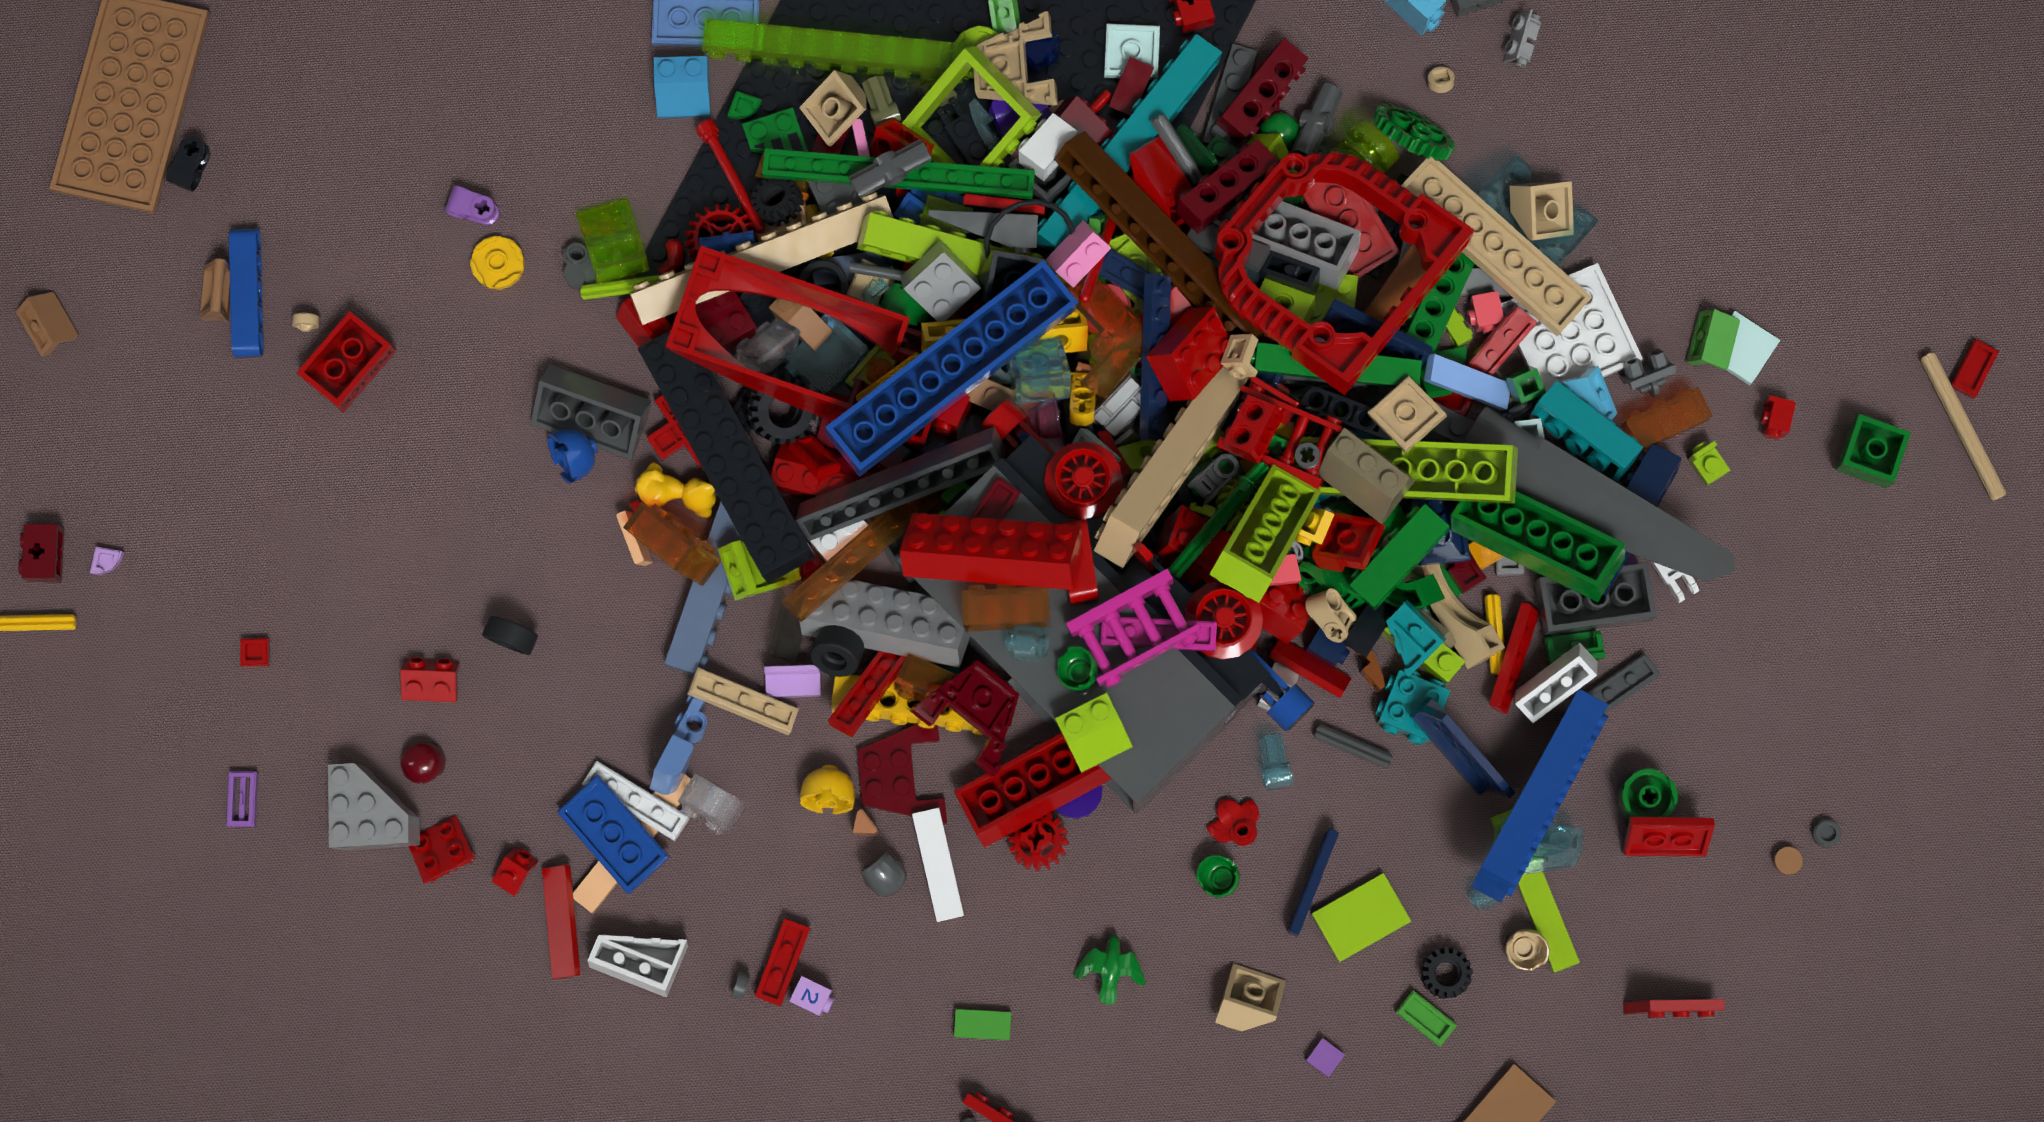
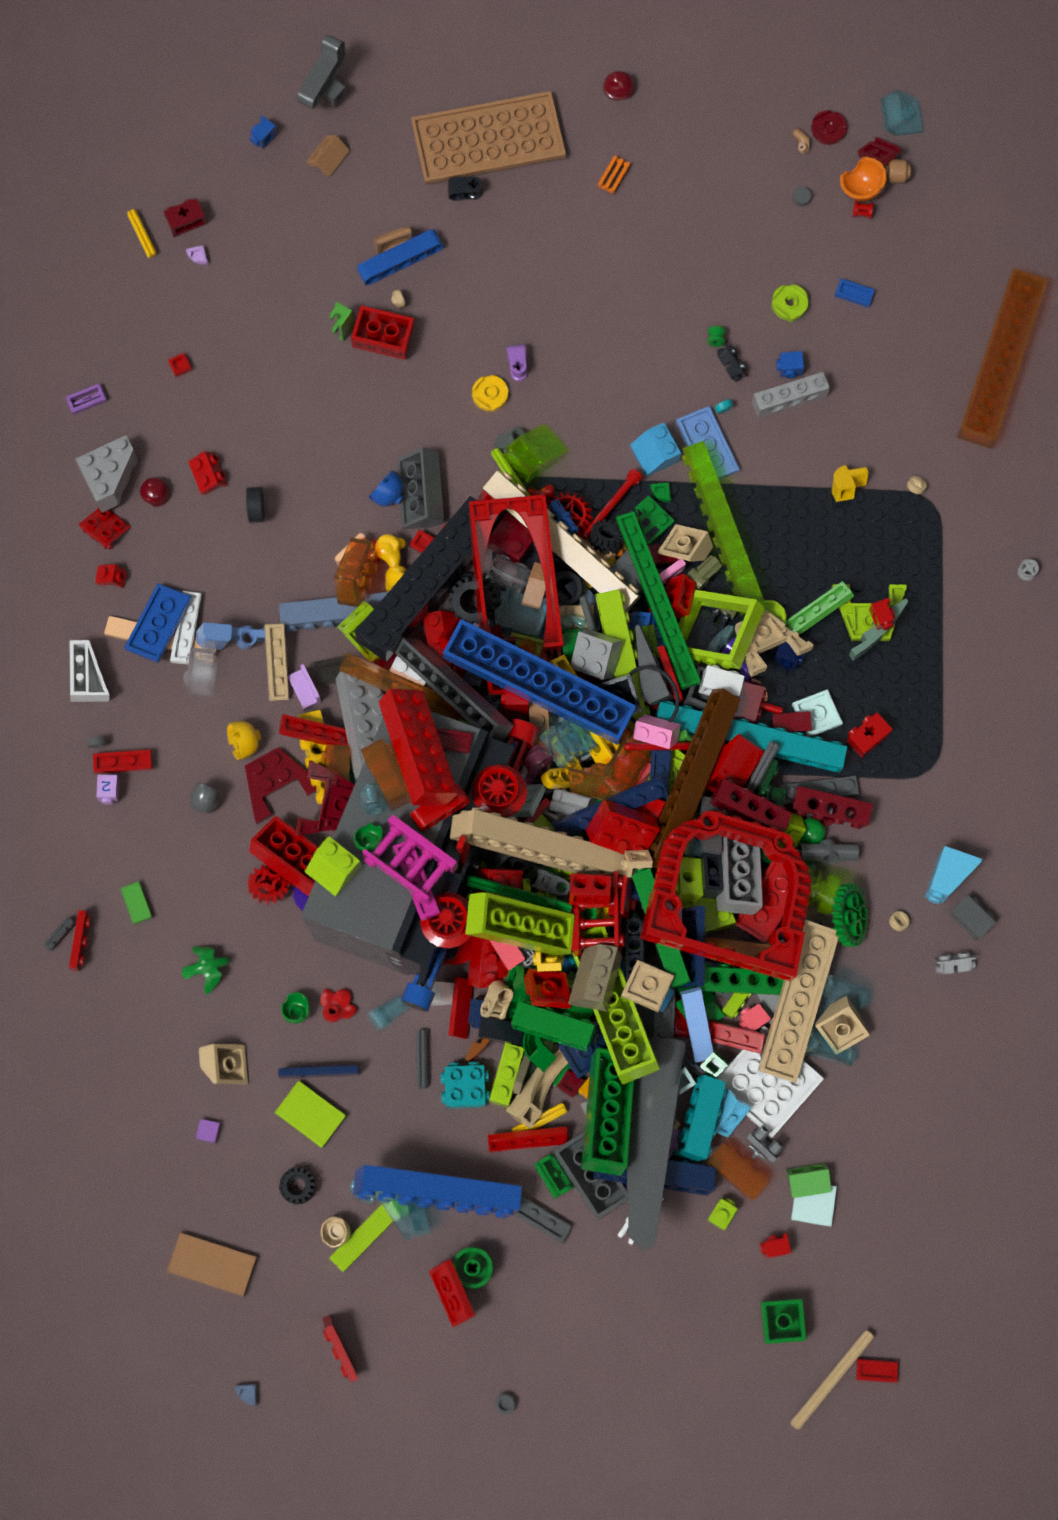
camera: 65 degrees right, 5 degrees down
(301, 405) = (344, 320): none -> bright green hinge
(561, 922) = (90, 617): red tile -> none
(837, 651) = (332, 702): black tyre -> none
(863, 825) = (231, 771): nougat slope -> none
(890, 168) = (656, 590): dark grey piece -> none
(938, 864) = (226, 829): white tile -> none
(1298, 456) = (585, 929): dark grey bush -> none
(1413, 636) = (507, 1061): teal wing -> none
(1426, 1018) = (262, 1186): bright green tile -> none
(1458, 749) = (448, 1125): dark blue fence -> none
(1556, 682) = (521, 1171): white brick -> none
(1787, 860) = (474, 1385): medium nougat tile -> none

